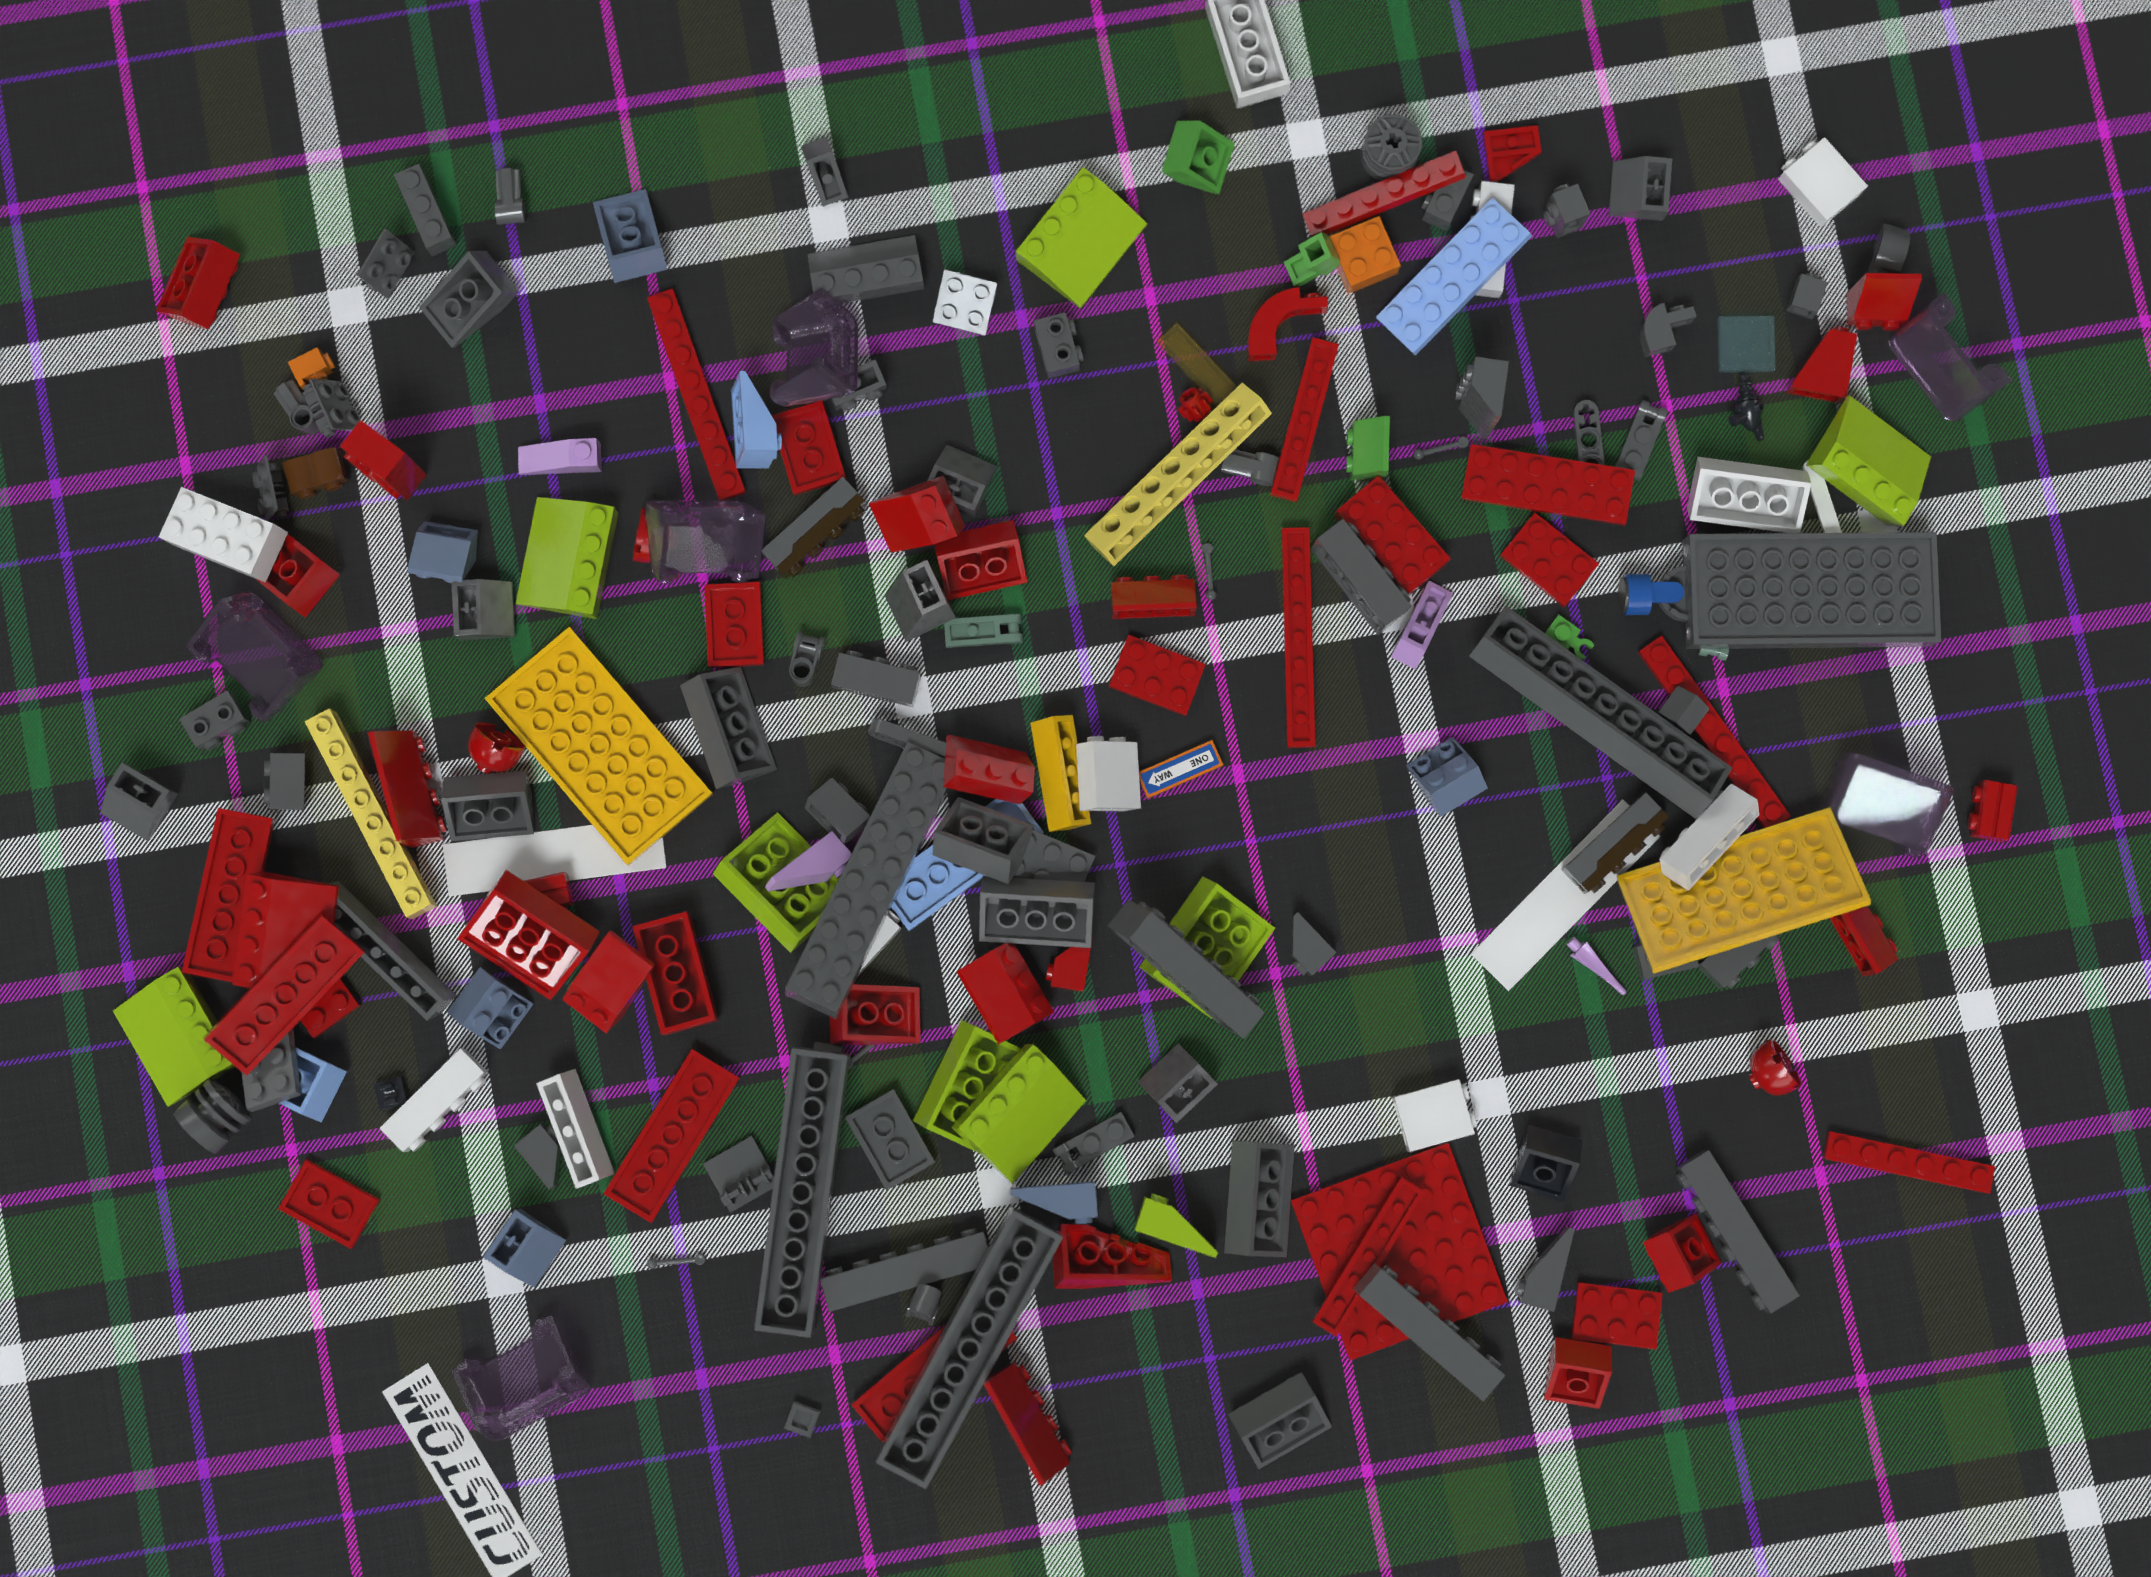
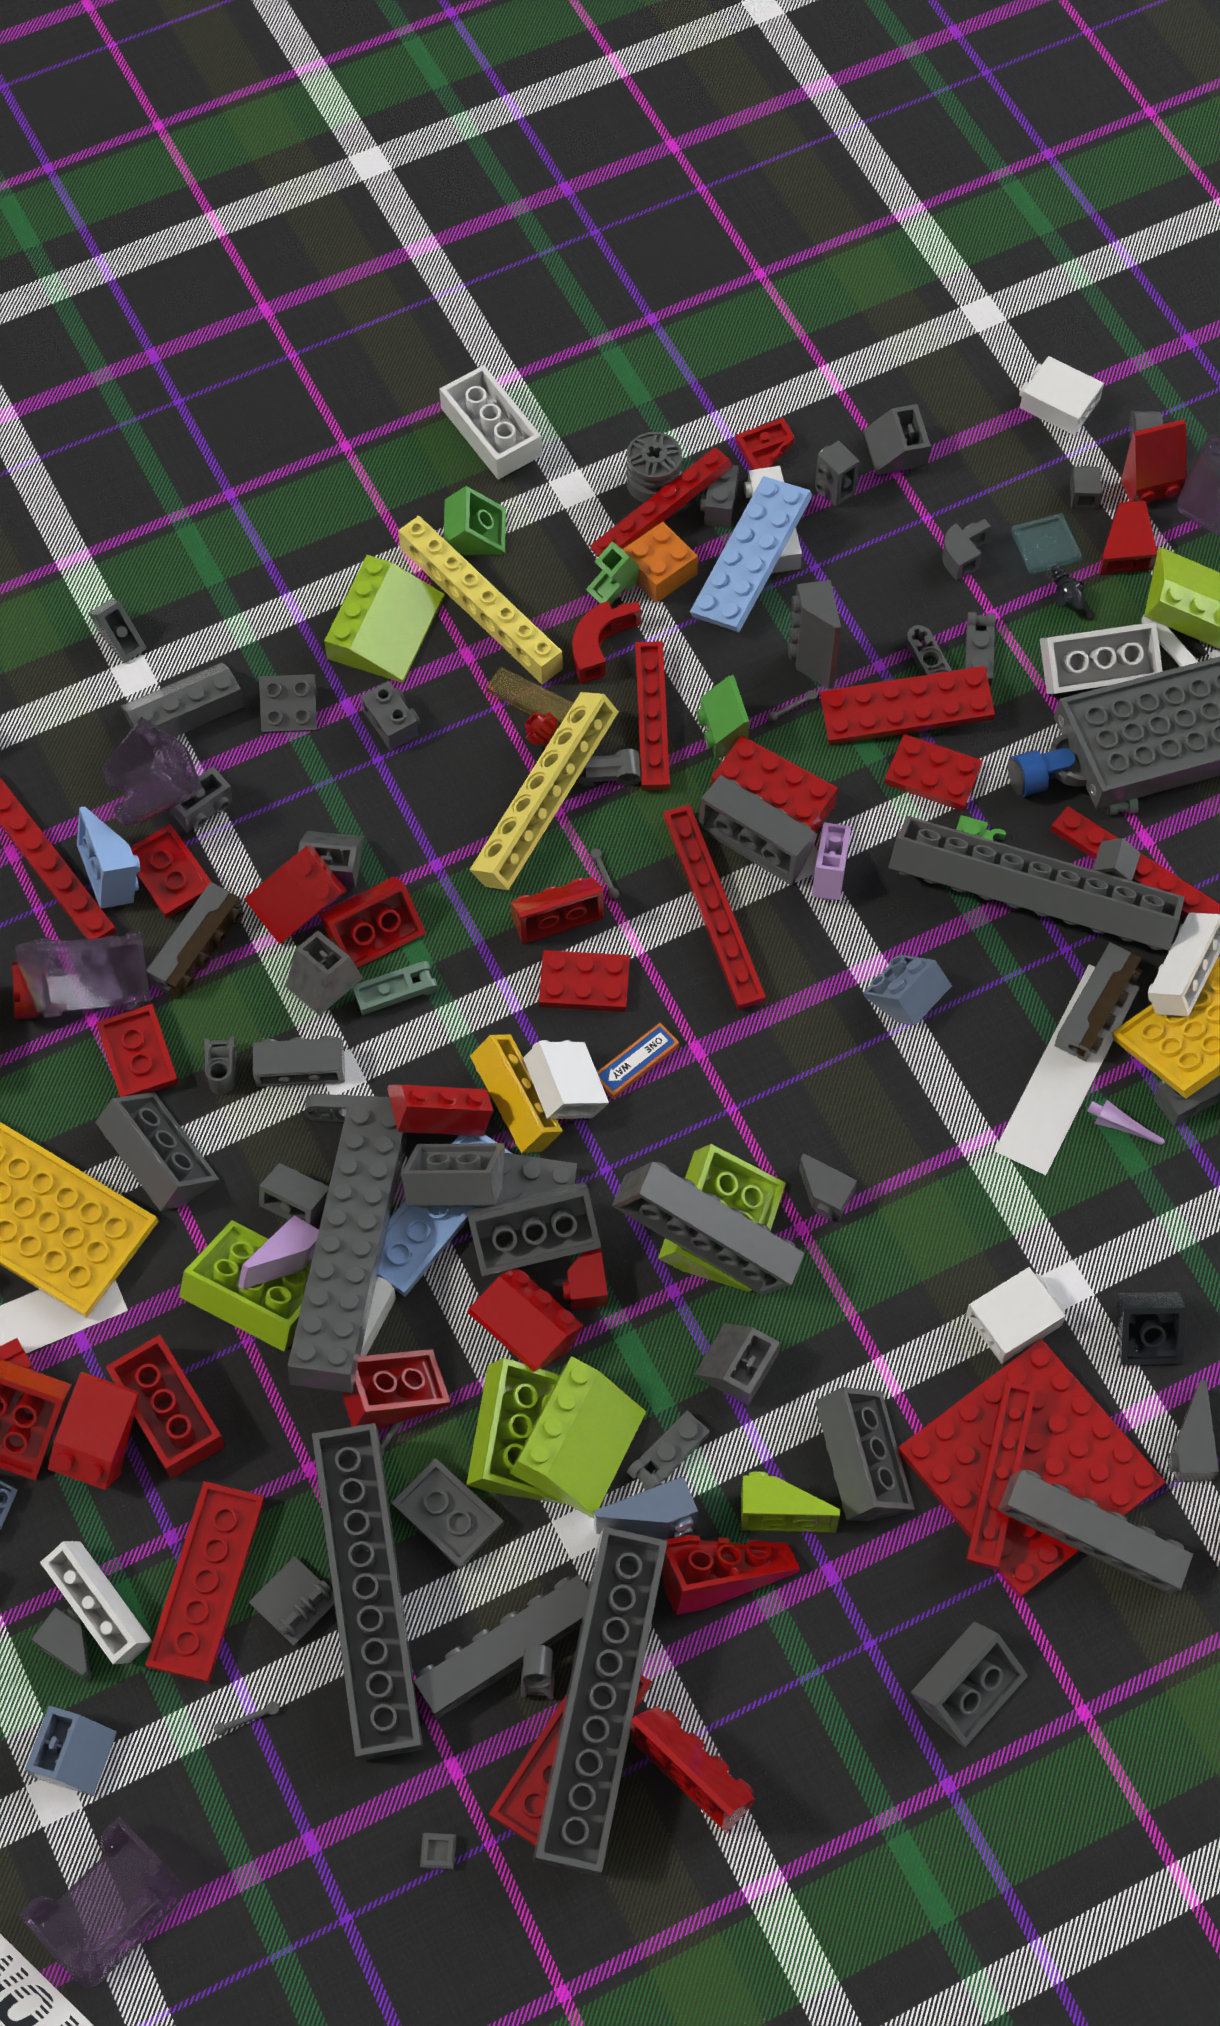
camera: 15 degrees left, 20 degrees down
(1178, 244) = (481, 600): none -> light yellow brick

